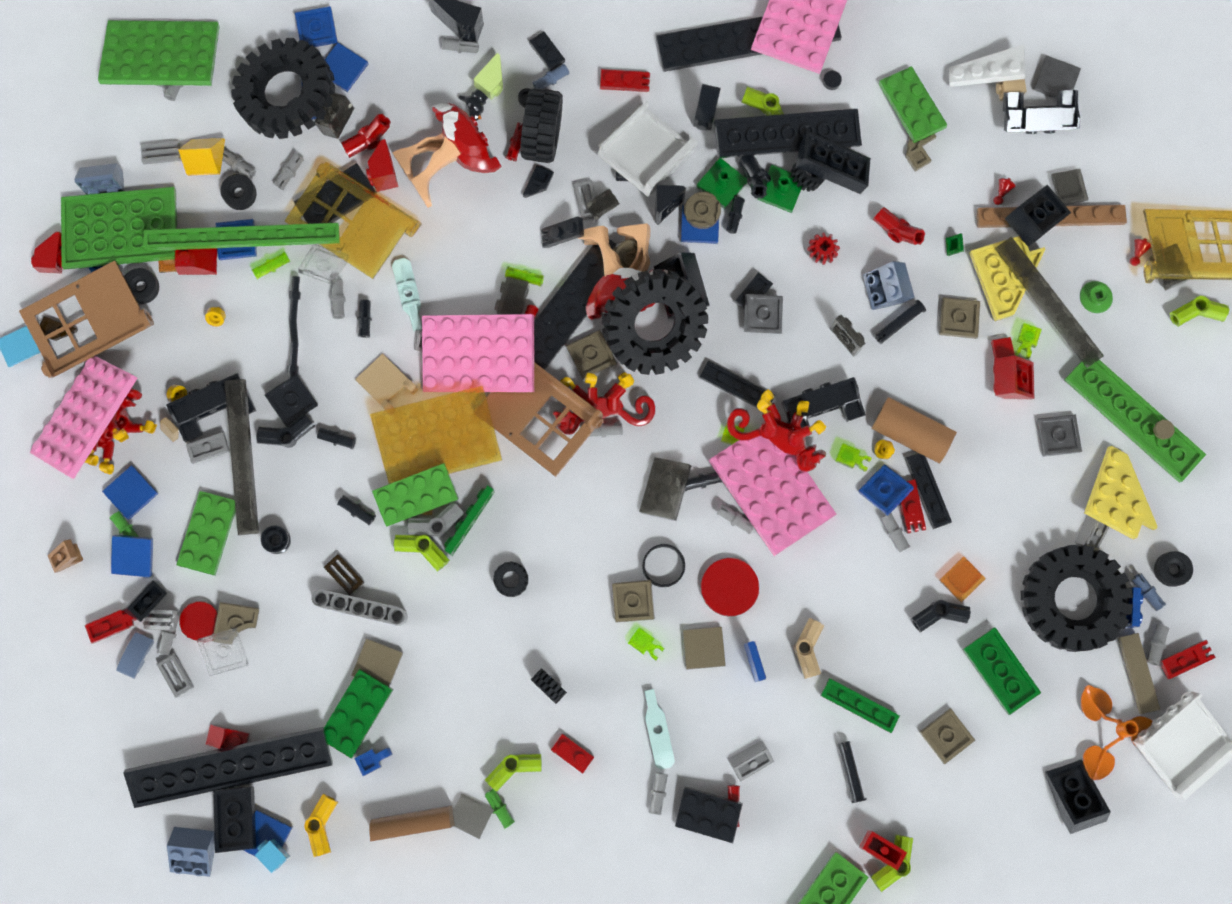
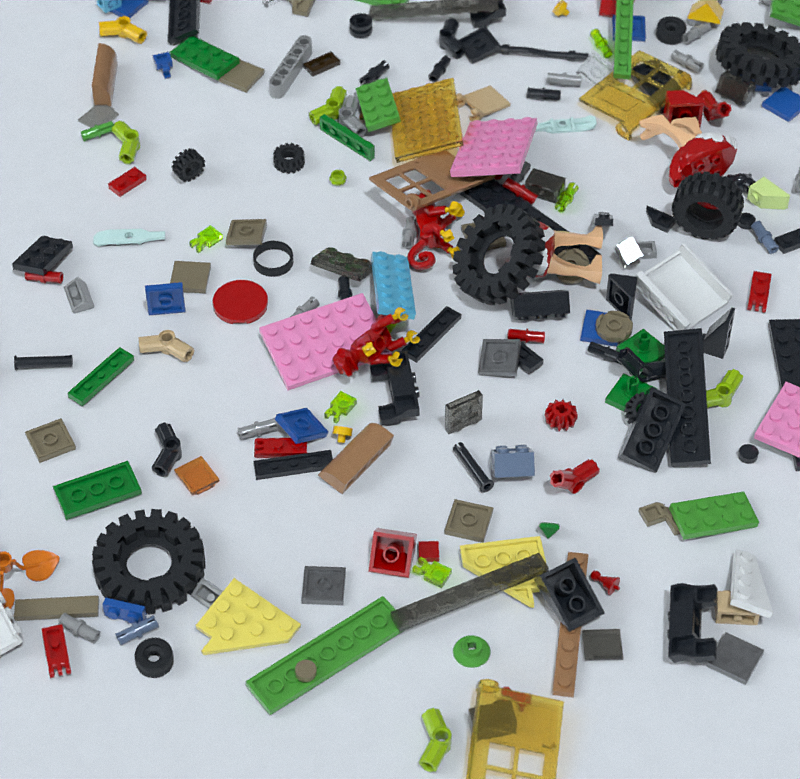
camera: 105 degrees right, 30 degrees down
(531, 515) = (337, 177): none -> lime plate
(658, 793) = (73, 228): light grey pin -> none
(698, 428) = (392, 284): none -> medium azure plate
(726, 293) = (526, 335): none -> red axle

